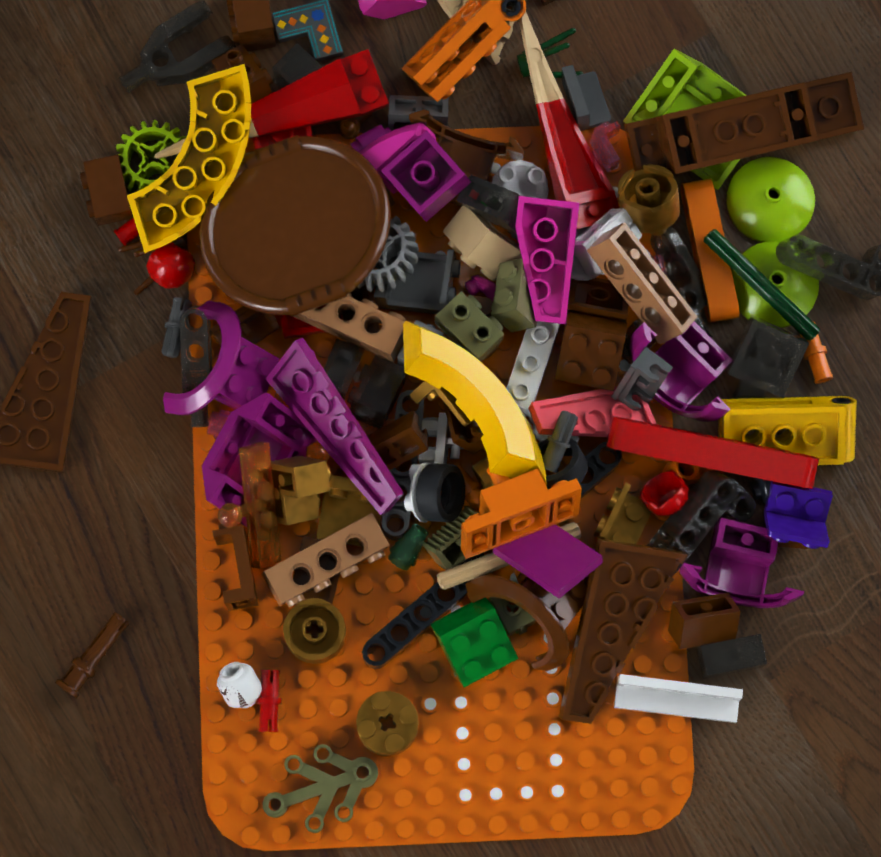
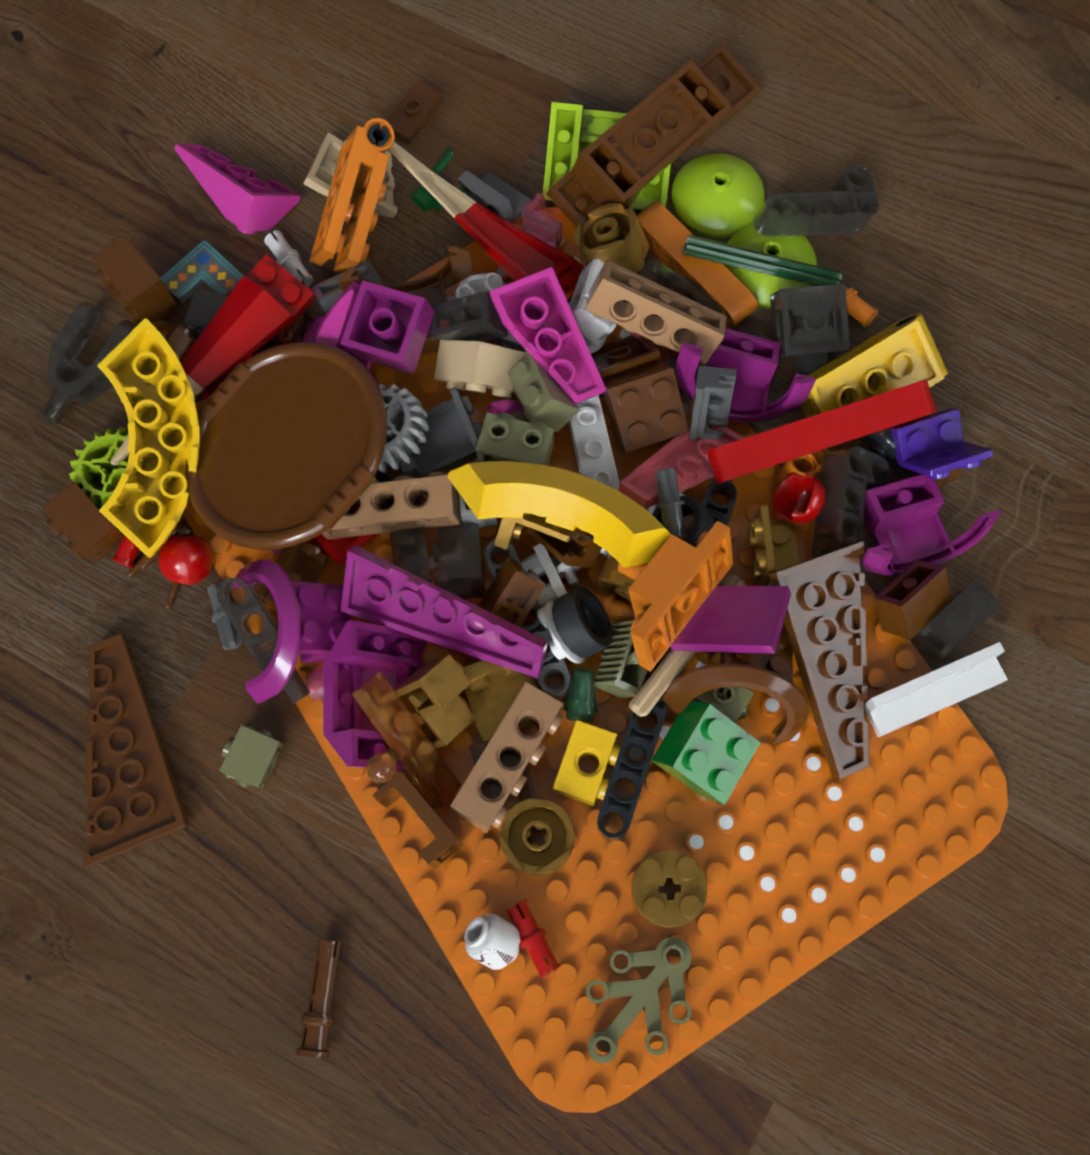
camera: 20 degrees left, 5 degrees down
(137, 448) = (251, 756): none -> olive head
(386, 55) = (288, 257): none -> white pin
(390, 582) = (586, 741): none -> yellow brick

